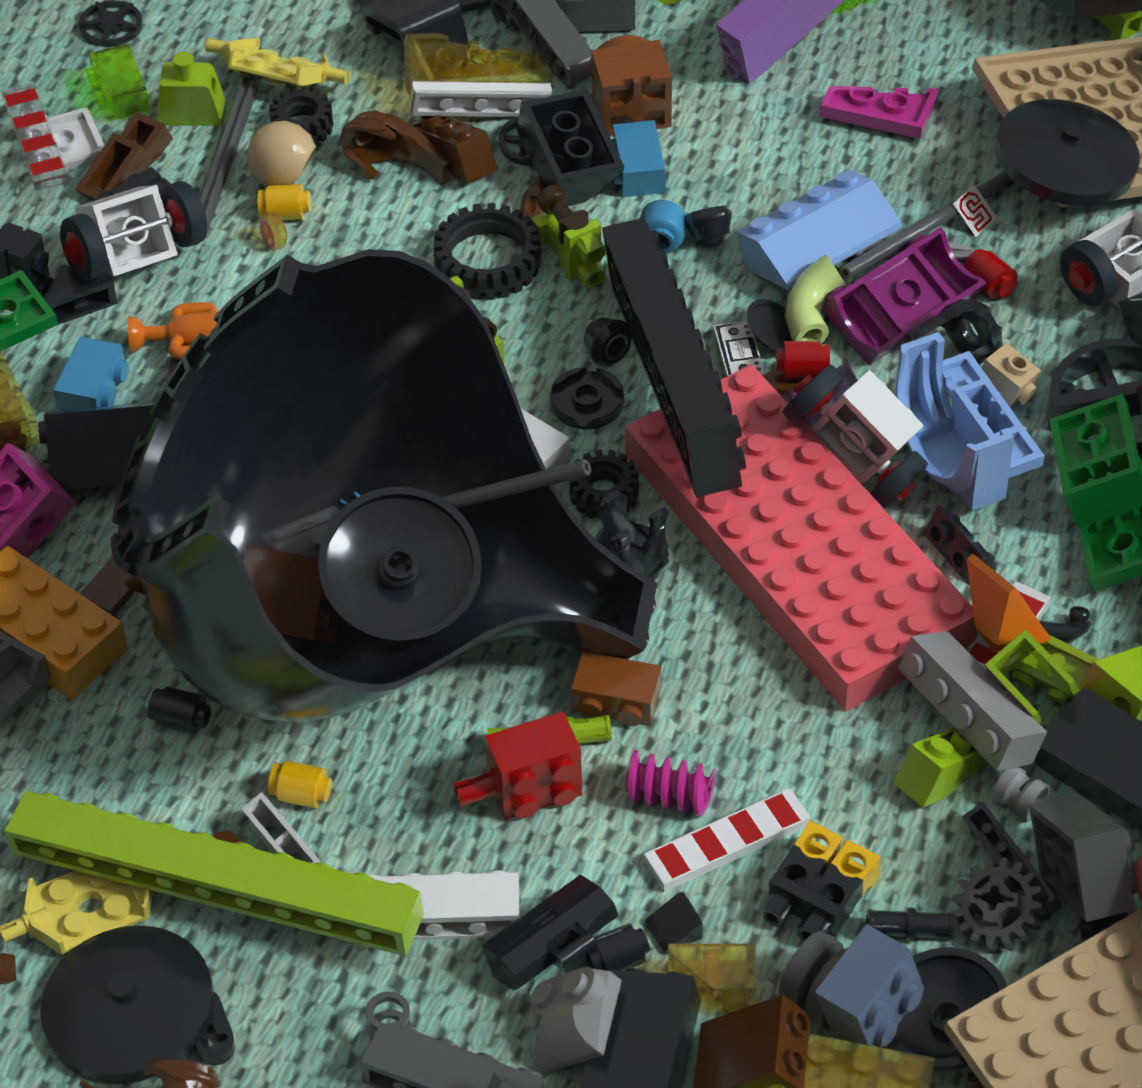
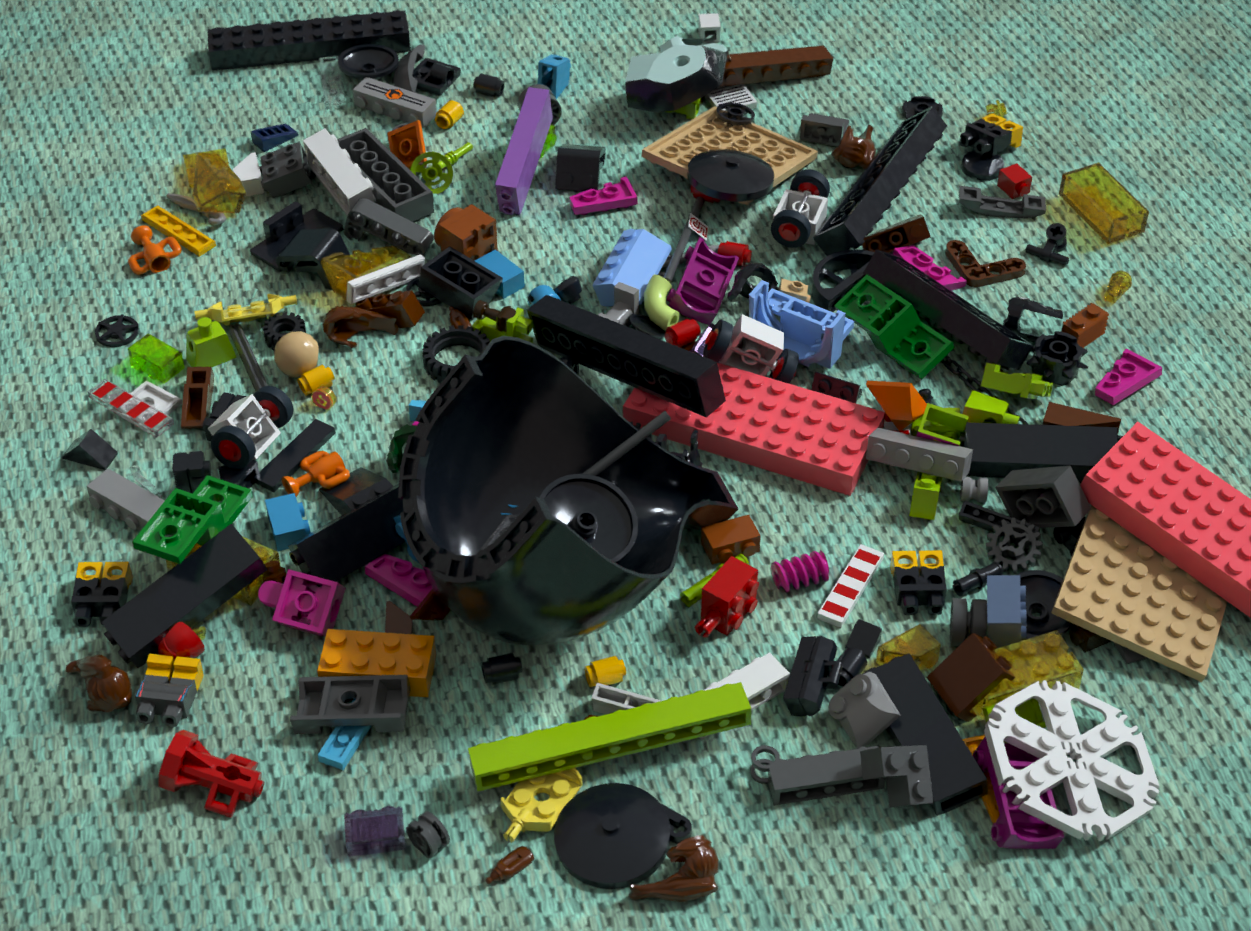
camera: 35 degrees left, 5 degrees down
(196, 286) = (289, 459): none -> black tile
(732, 298) = (625, 303): none -> light grey piece
(878, 41) = (579, 167): none -> black piece

